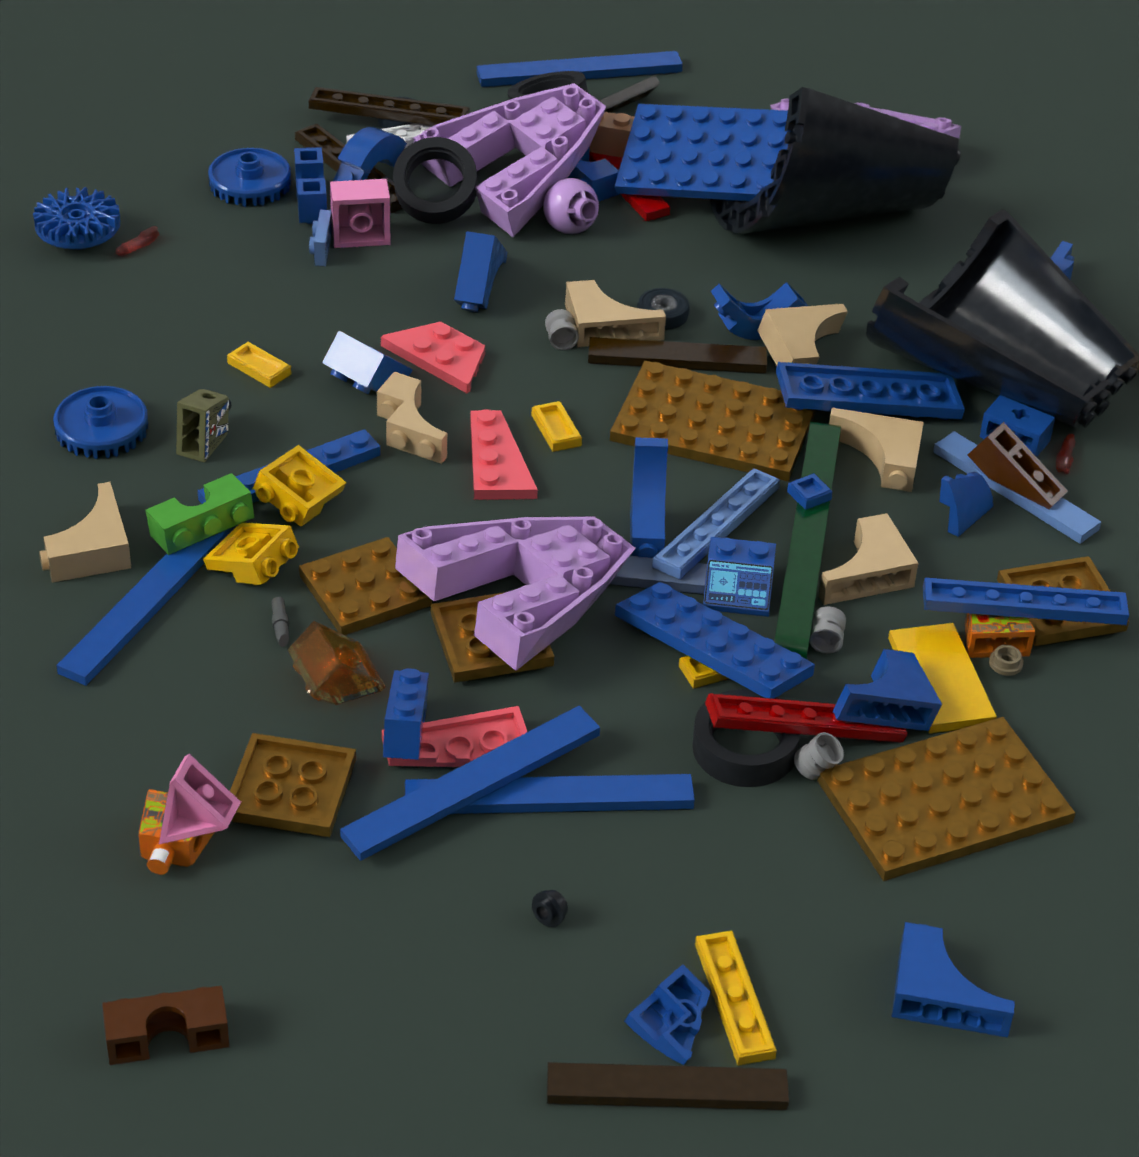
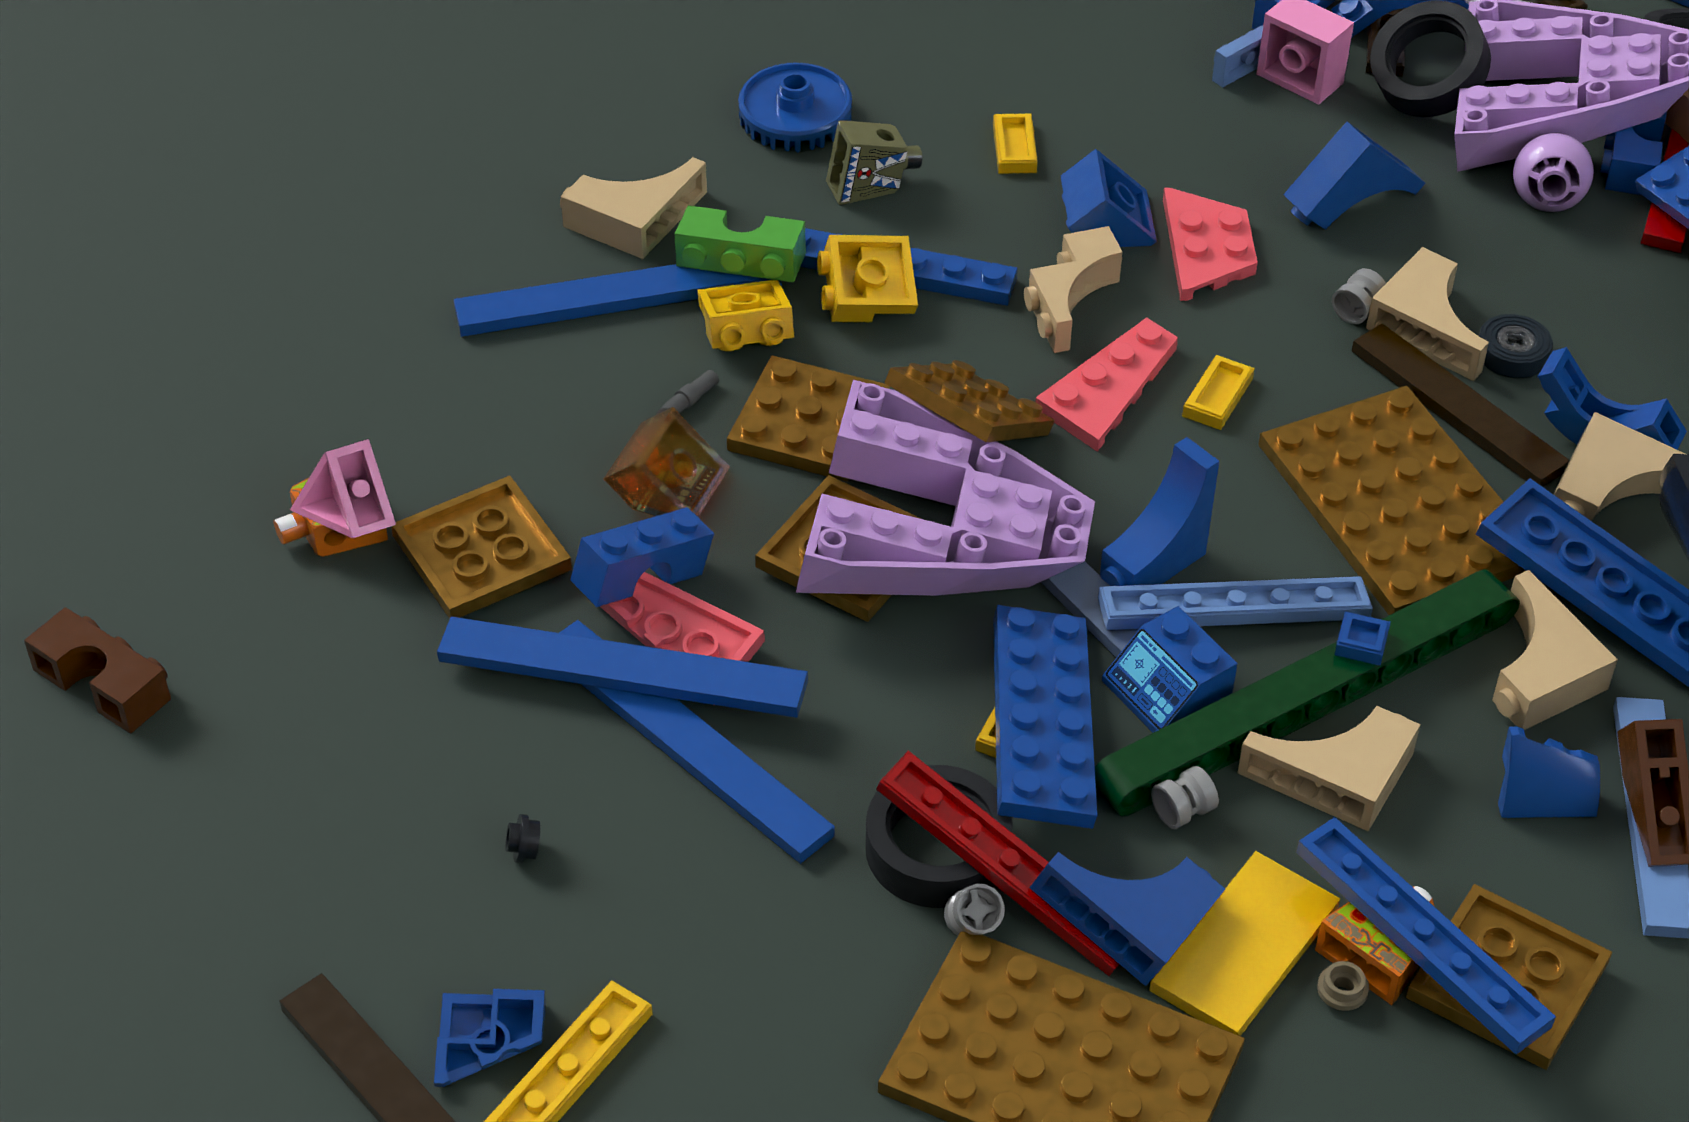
camera: 50 degrees right, 5 degrees up
(457, 509) = (970, 401): none -> pearl gold plate

